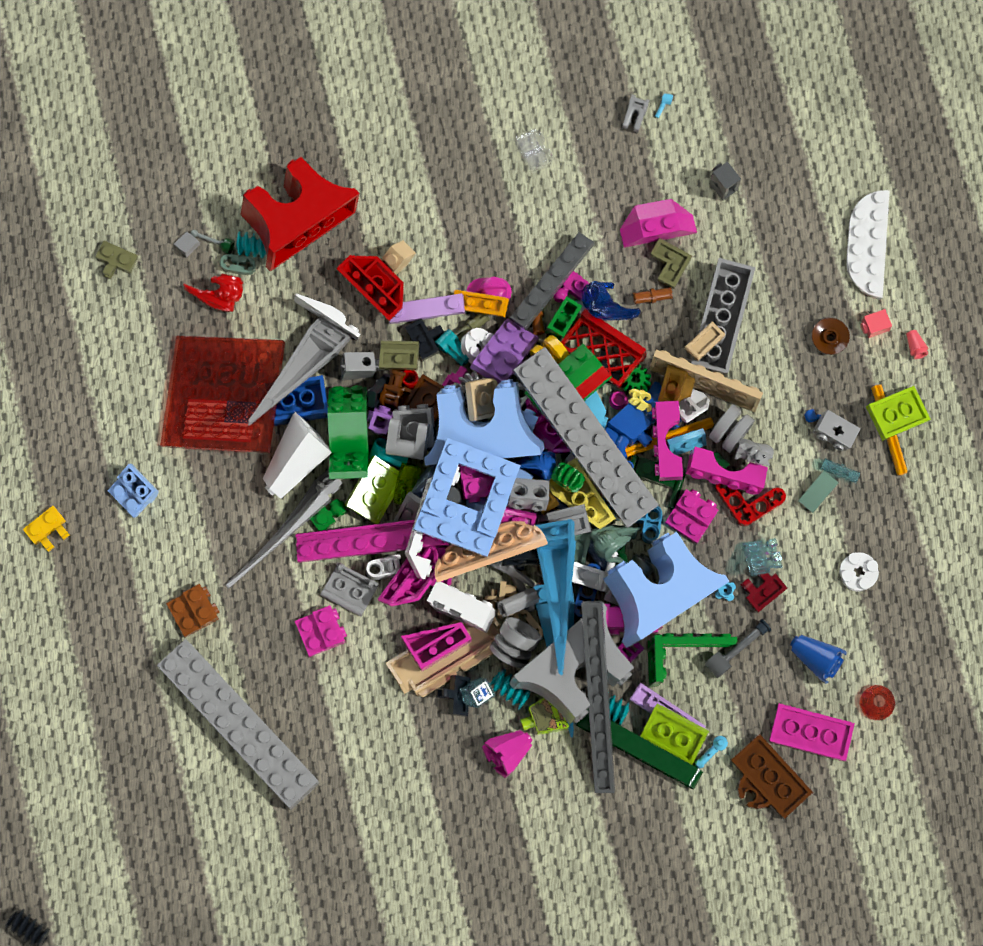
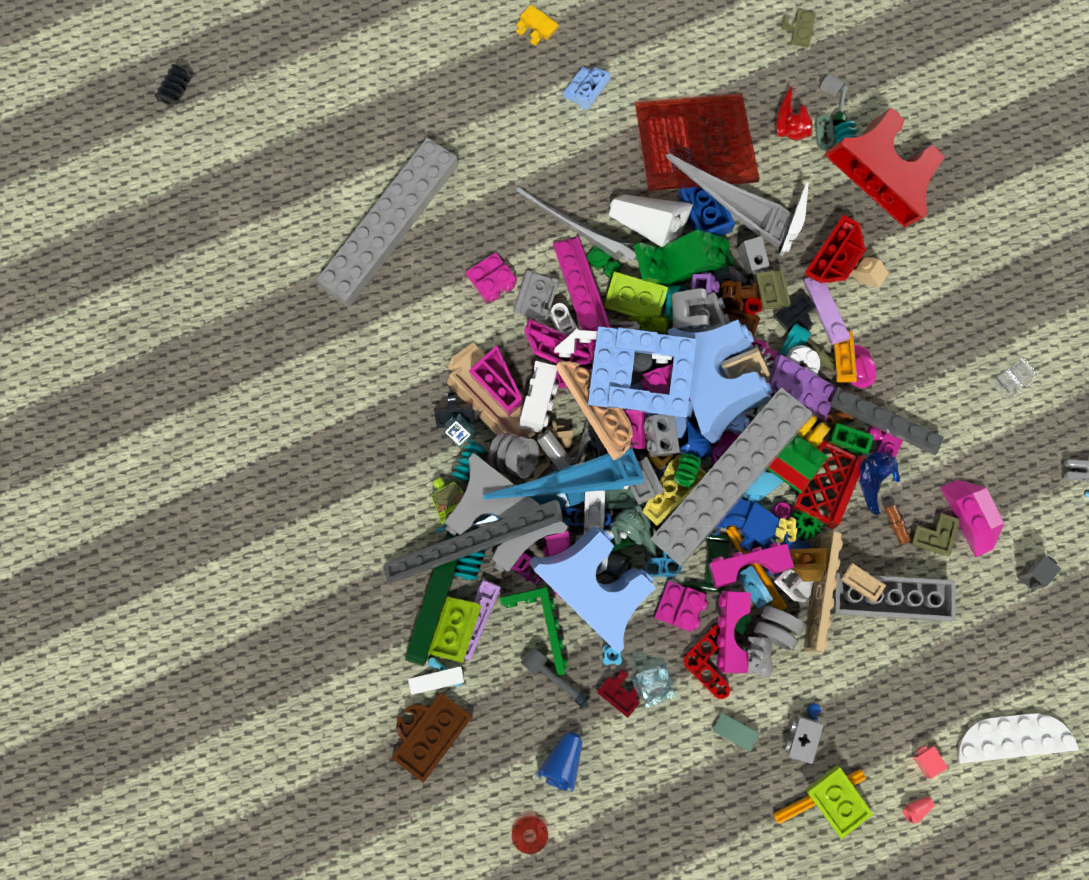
camera: 80 degrees right, 0 degrees up
(193, 610) = (488, 163): dark orange plate -> none
(507, 751) = (409, 471): dark pink cone -> none
(719, 762) = (436, 680): none -> white sticker
(812, 732) = (484, 771): dark pink plate -> none
(837, 330) = (913, 715): reddish brown dish -> none
(840, 470) = (763, 751): clear light blue pin -> none
(849, 576) = (672, 785): white plate -> none

